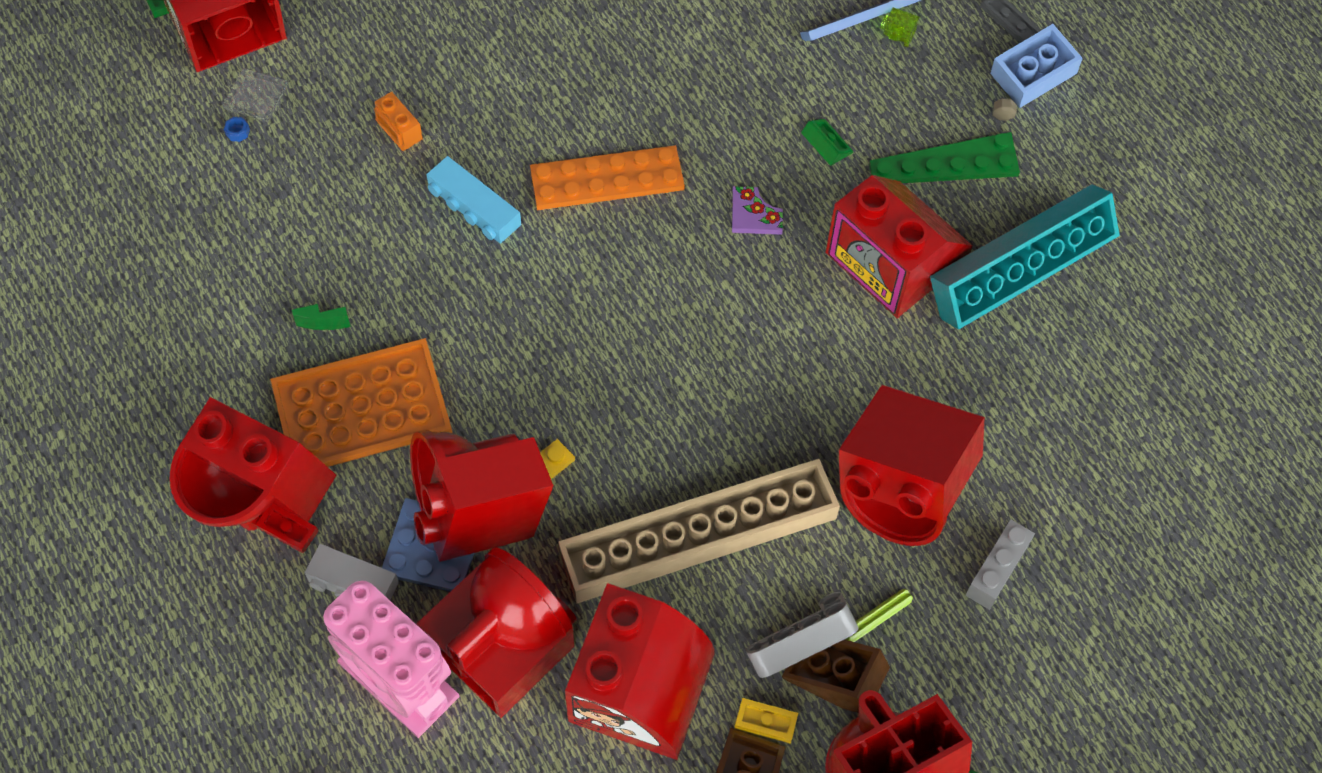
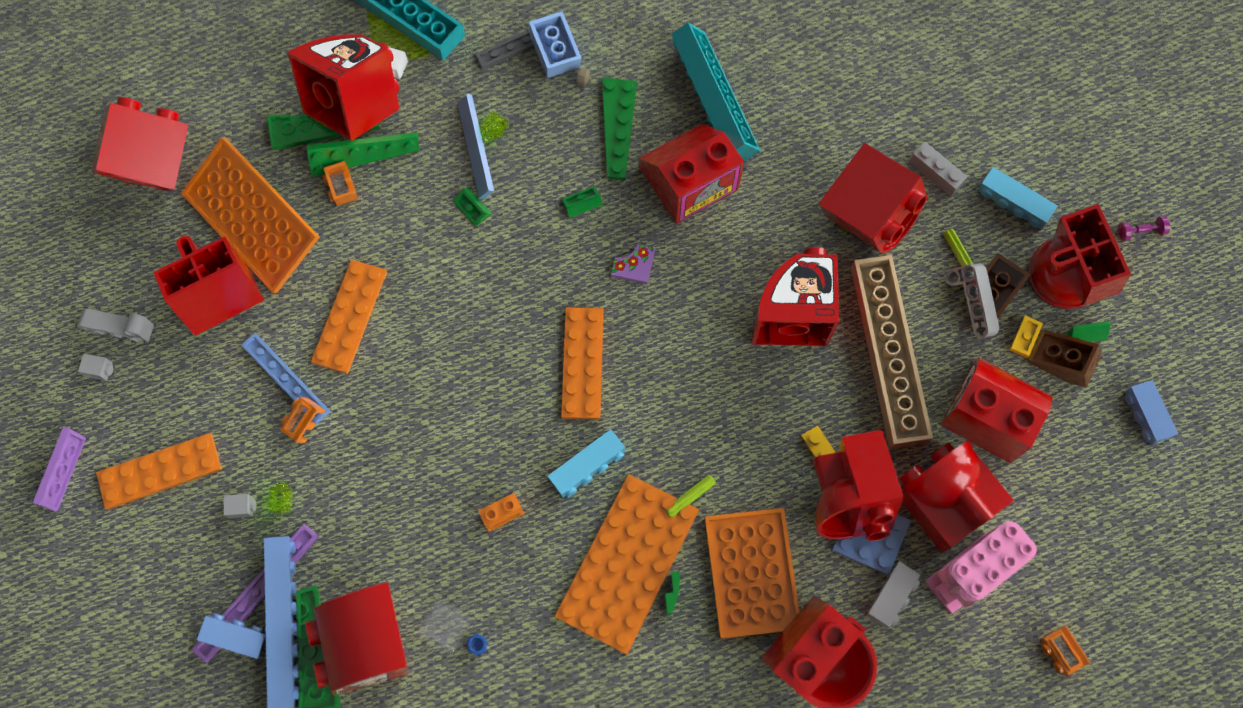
camera: 75 degrees left, 10 degrees up
(356, 266) = (626, 565): none -> orange plate
(451, 320) = (691, 495): none -> lime axle
(735, 385) = (800, 302): none -> red brick
(788, 28) = (471, 206): none -> green slope
(988, 681) = (1017, 198): none -> medium azure brick

